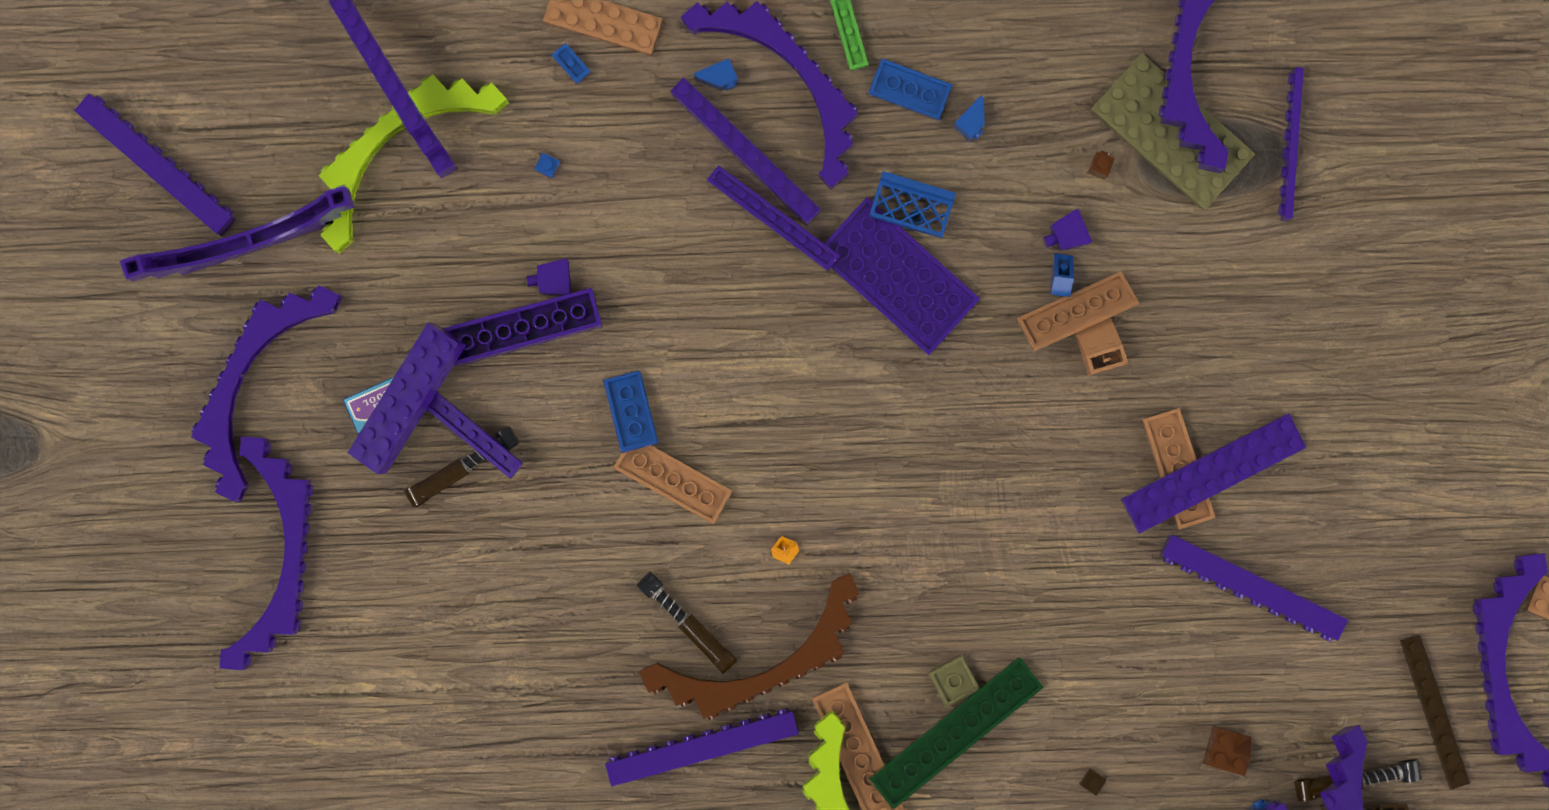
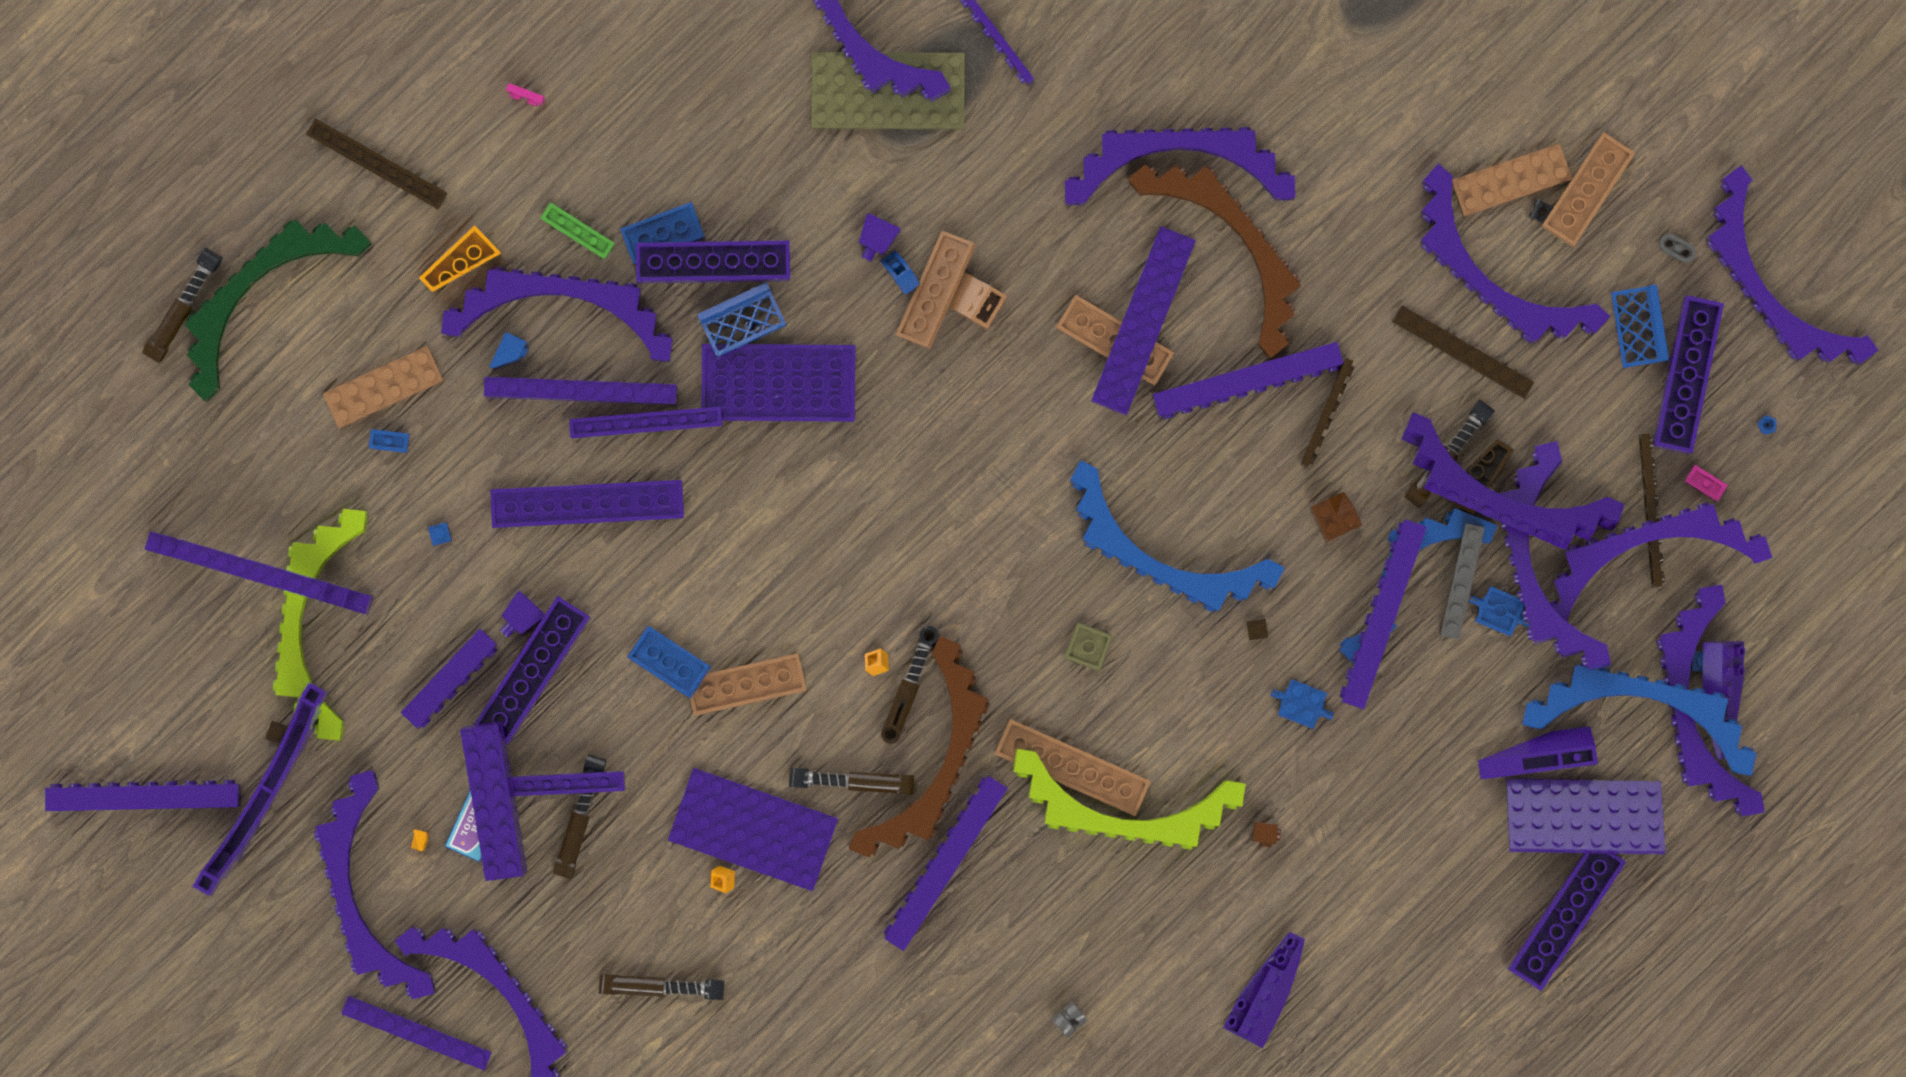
camera: 40 degrees left, 0 degrees up
(198, 519) = (416, 1033): none -> dark purple plate
(295, 202) = (276, 732): none -> dark brown plate
(329, 379) = (419, 840): none -> light orange slope
(375, 616) = (658, 986): none -> piece
(457, 278) = (449, 678): none -> dark purple brick
(525, 609) = (722, 879): none -> light orange slope
(581, 592) = (753, 829): none -> dark purple plate
(675, 239) = (587, 504): none -> dark purple plate
(792, 590) = (909, 687): none -> piece
(929, 142) = (712, 262): none -> dark purple brick
(955, 733) = (1123, 683): dark green plate -> none
(972, 121) = (730, 216): blue slope -> none
(1042, 615) = (1204, 588): none -> blue arch
(1101, 164) = (856, 163): reddish brown brick -> none
(1283, 670) = (1331, 405): none -> dark brown plate
(1348, 423) = (1208, 193): none -> reddish brown arch
(1397, 402) = (1233, 146): none -> dark purple arch

